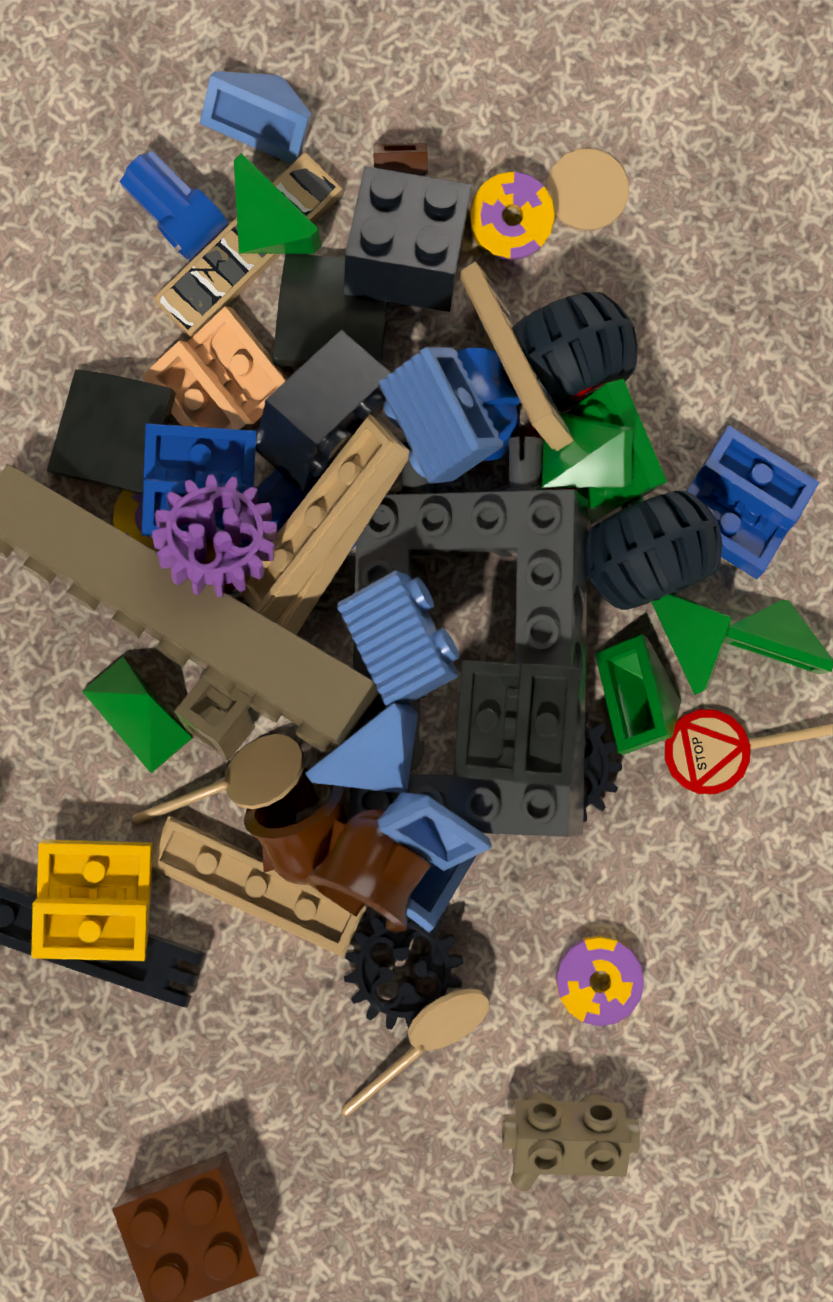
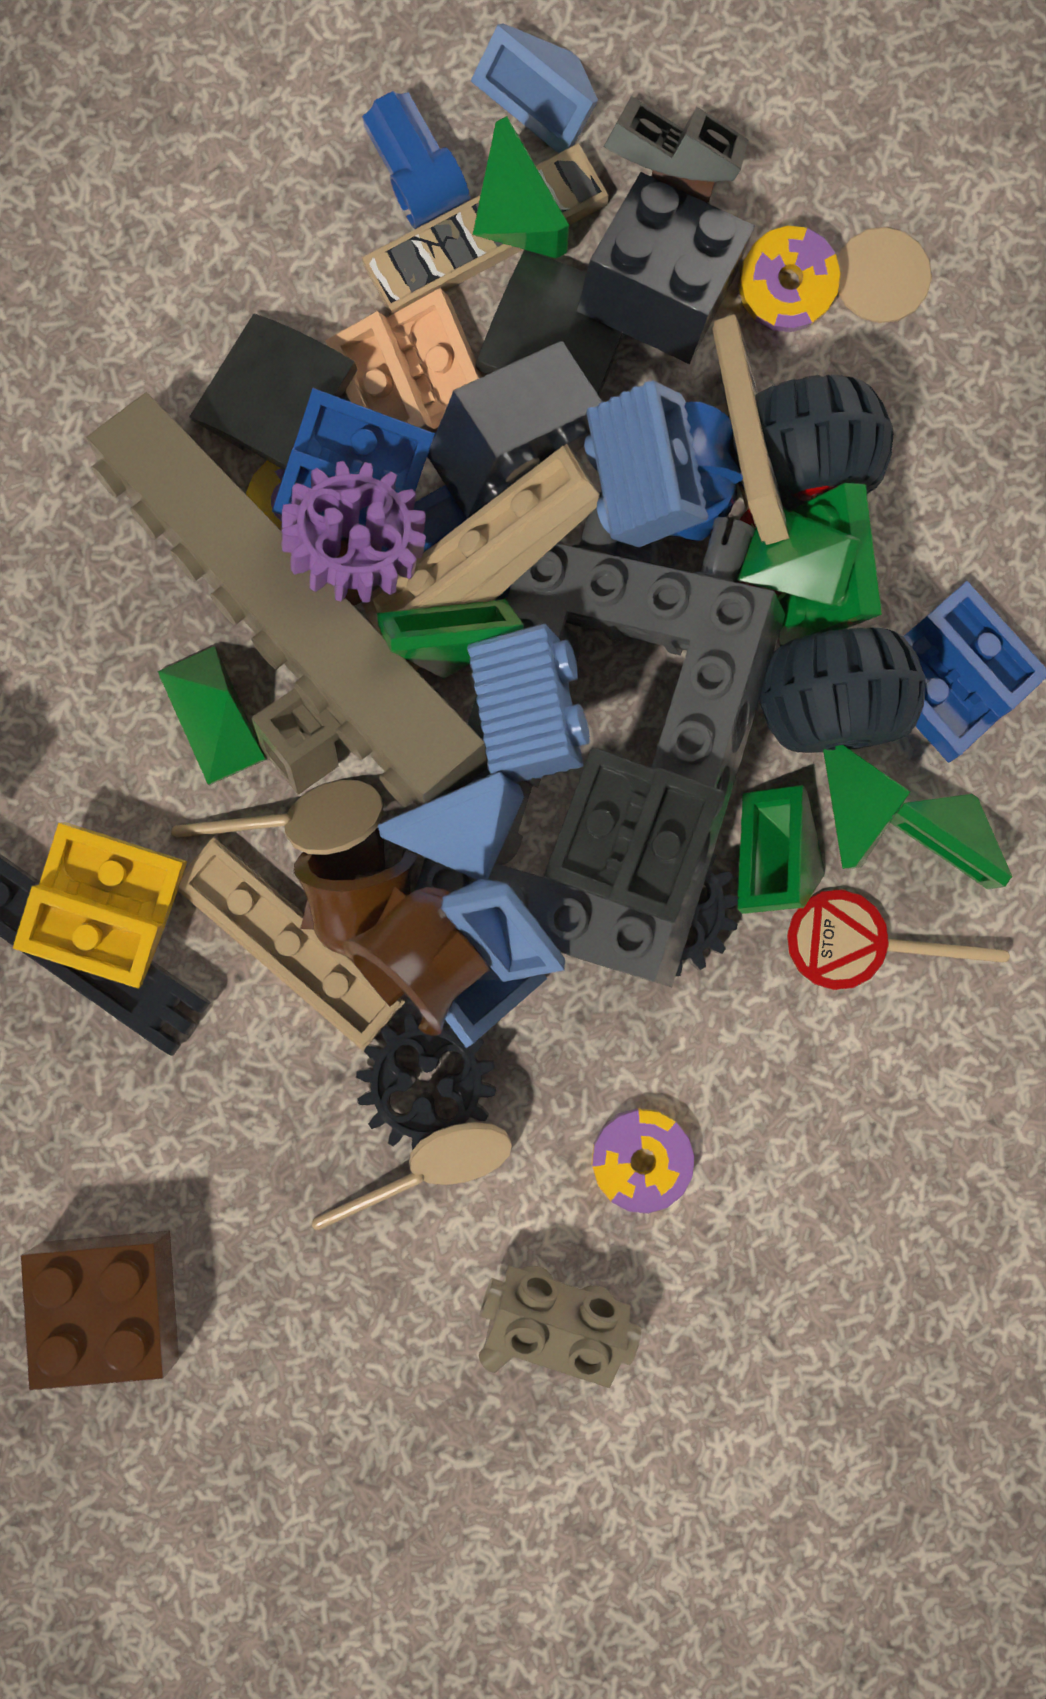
camera: 15 degrees right, 0 degrees up
(313, 599) = (440, 635): none -> green slope
(405, 135) = (698, 152): none -> pearl dark grey slope

